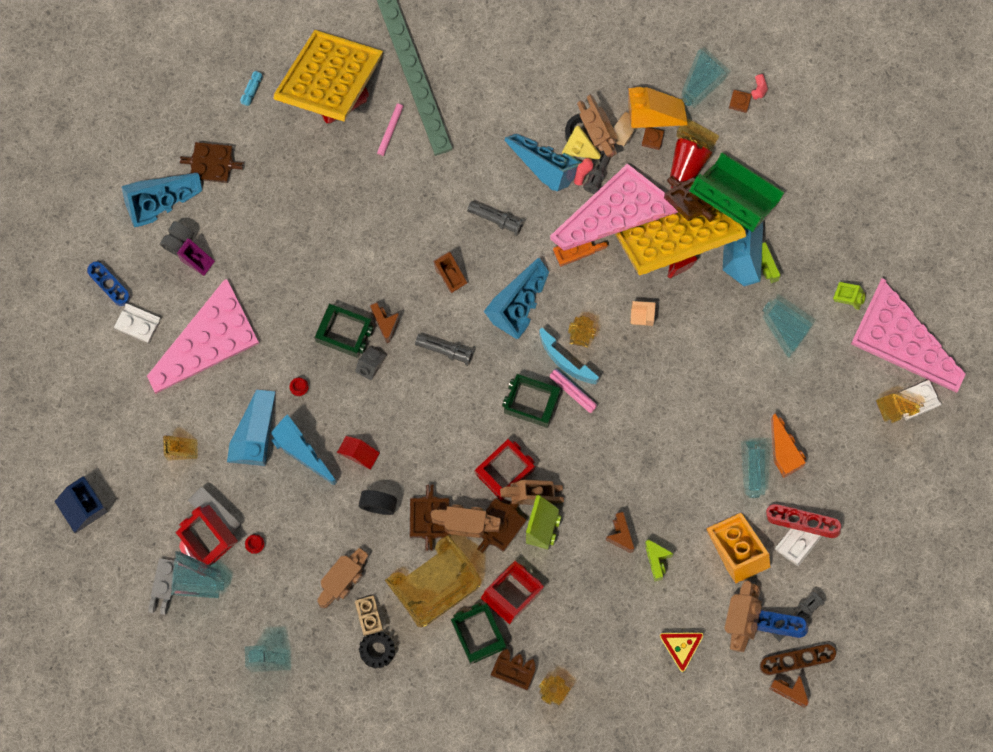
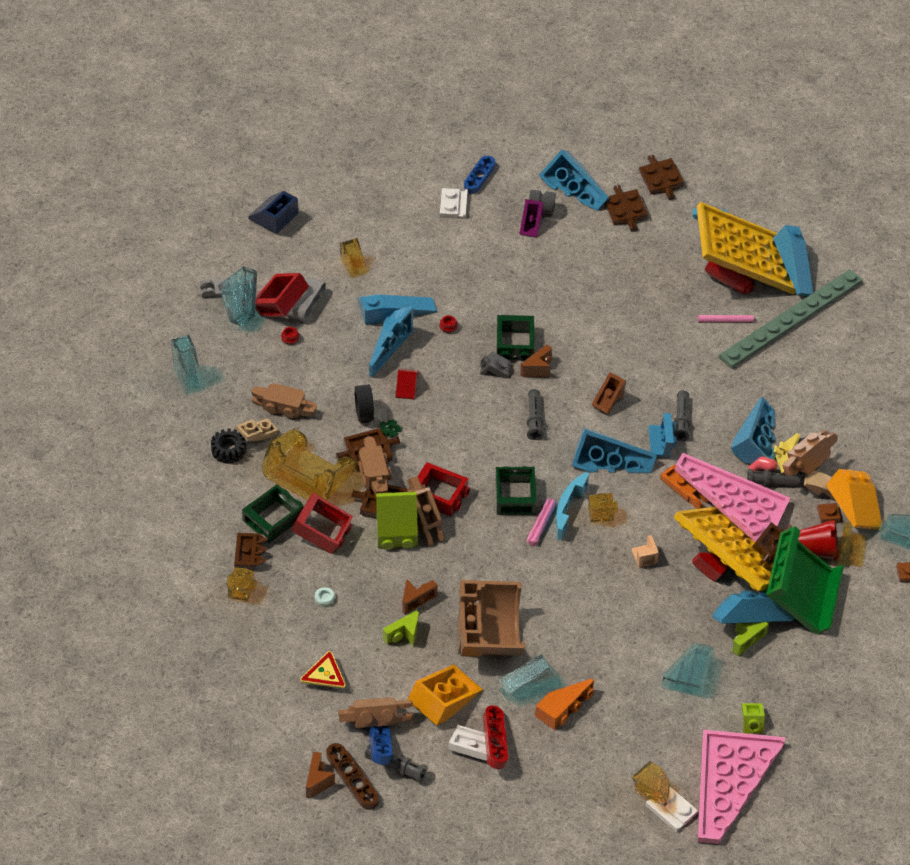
camera: 65 degrees right, 25 degrees down
(183, 112) = (661, 176): none -> reddish brown plate
(210, 338) = (463, 254): bright pink wing -> none
(344, 35) = (795, 258): none -> dark azure wedge
(408, 488) = (390, 428): none -> dark green plant
(518, 245) = (661, 437): none -> dark azure bracket
(589, 618) = (324, 597): none -> light aqua tile
(687, 484) = (493, 622): none -> medium nougat piece

